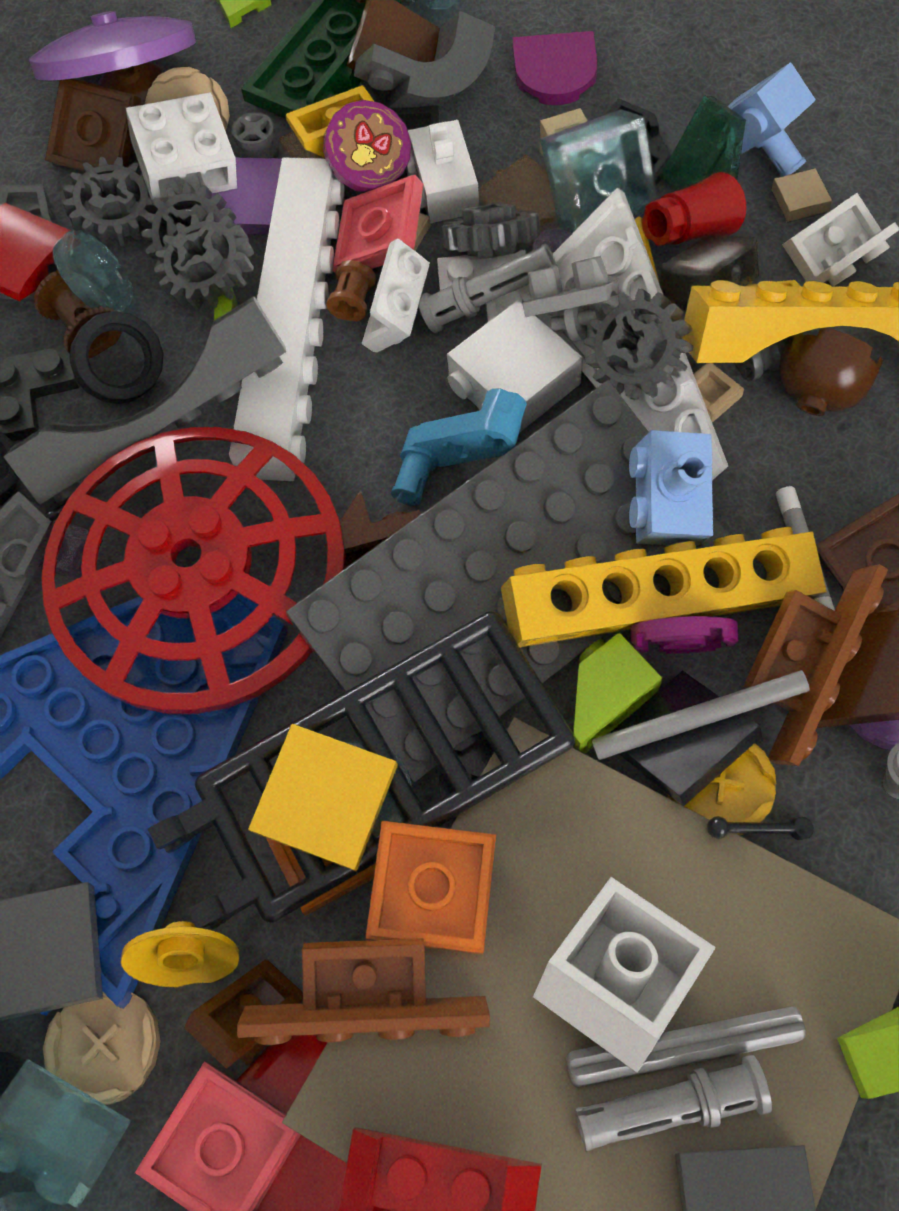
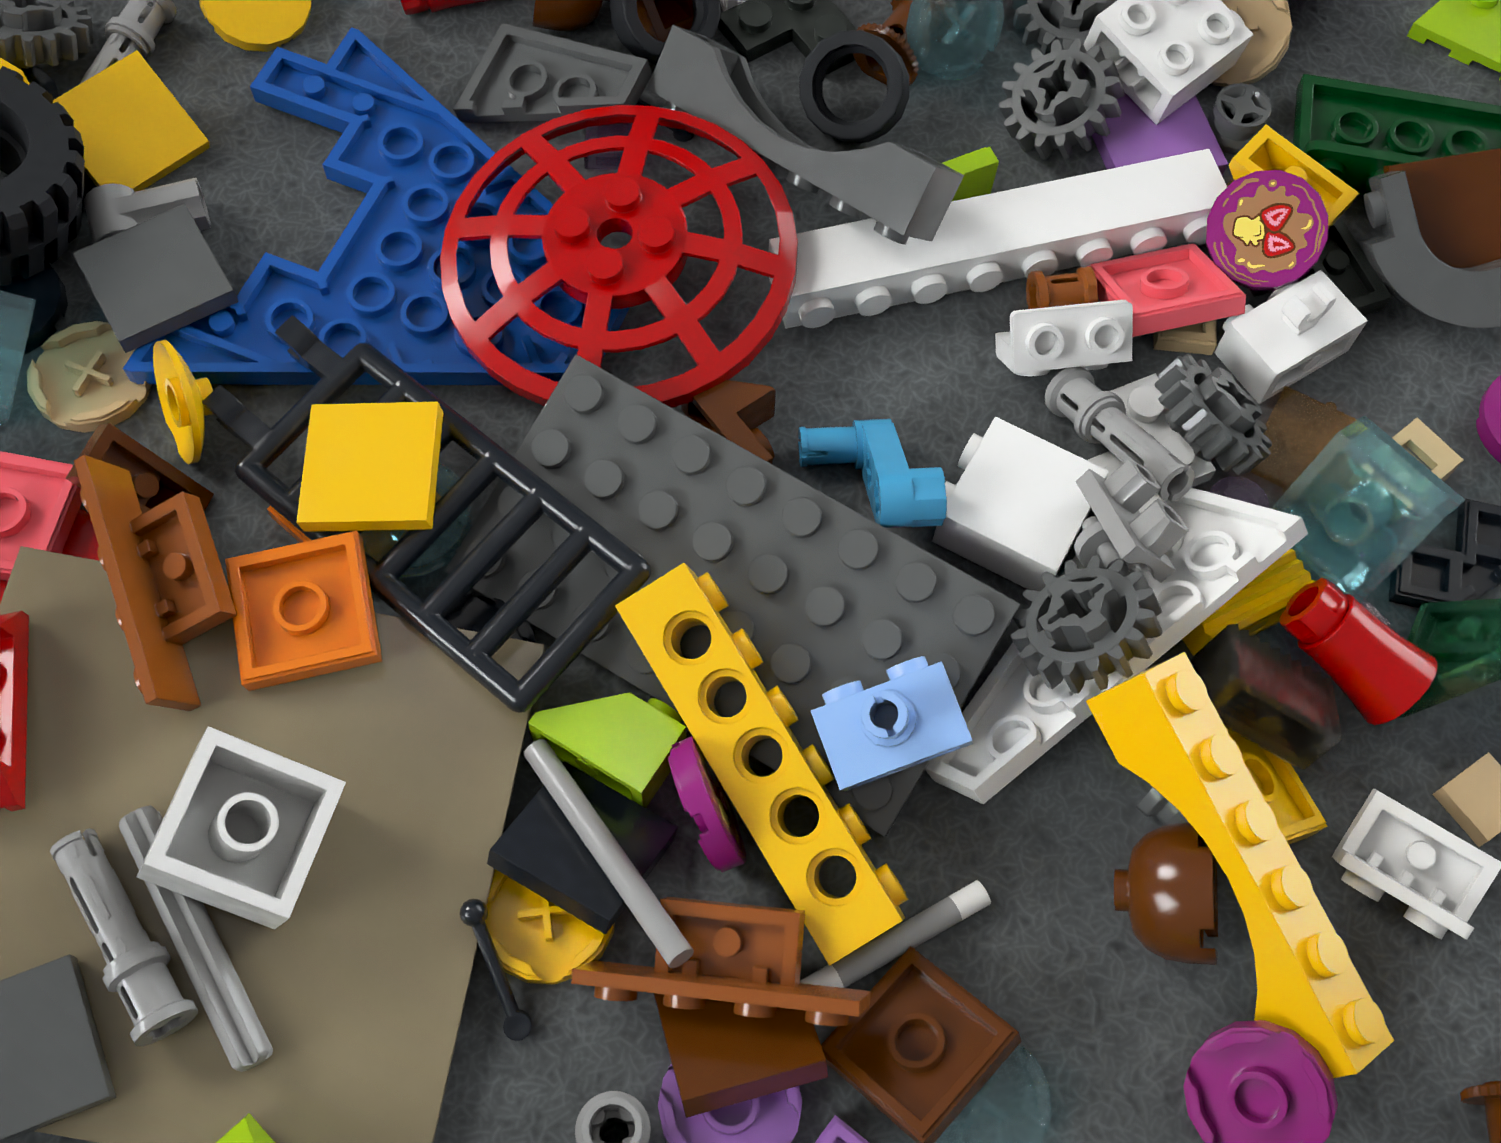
camera: 60 degrees right, 0 degrees up
(204, 261) = (1012, 119): dark grey gear -> none
(717, 390) = (1091, 763): tan tile -> none

